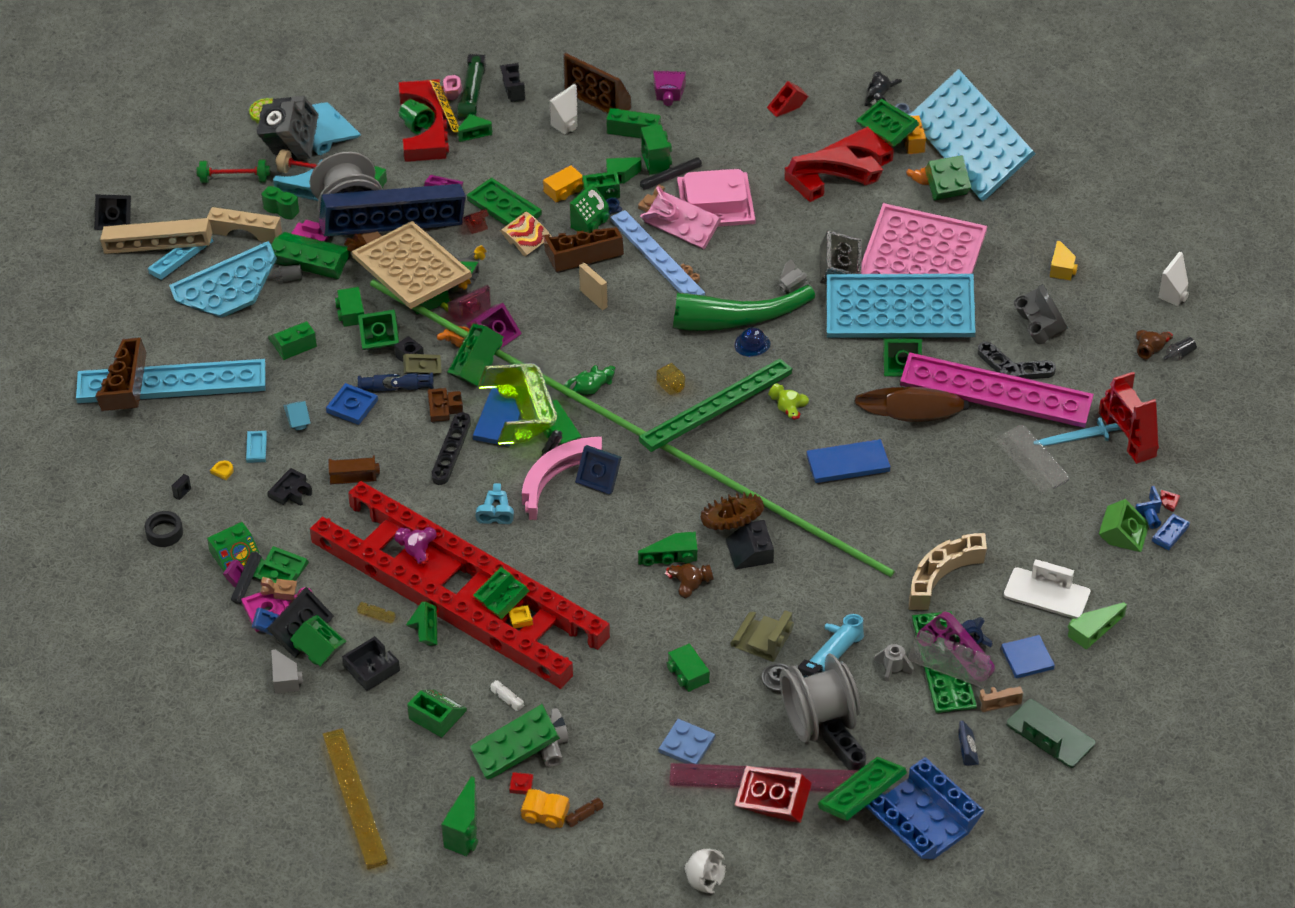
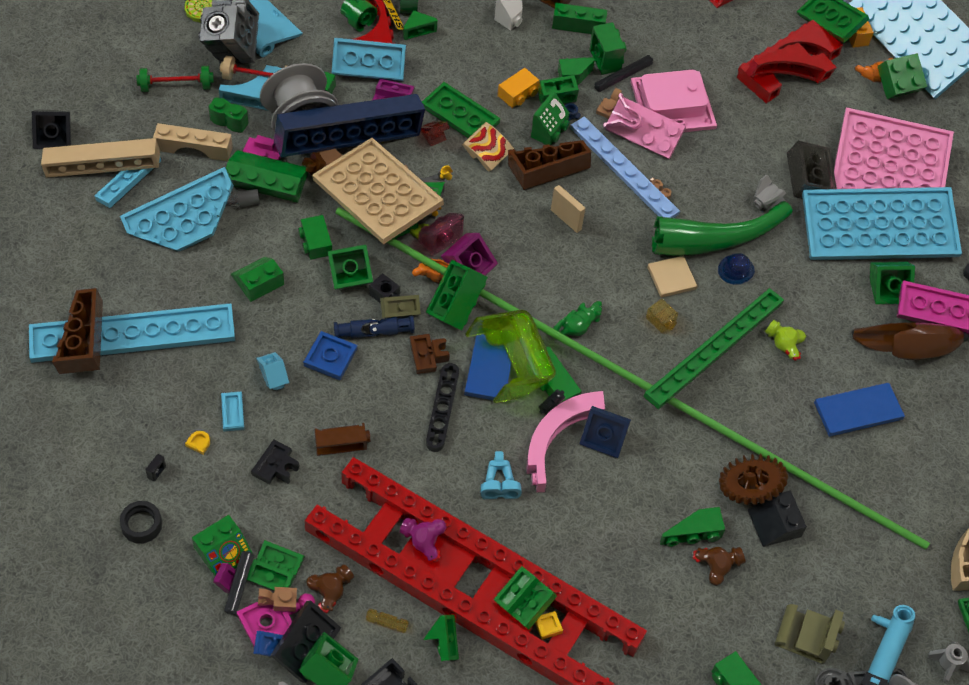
camera: 10 degrees left, 10 degrees up
(328, 582) = (330, 586): none -> reddish brown animal
(420, 156) = (368, 59): none -> medium azure tile
(688, 348) = (672, 276): none -> tan tile

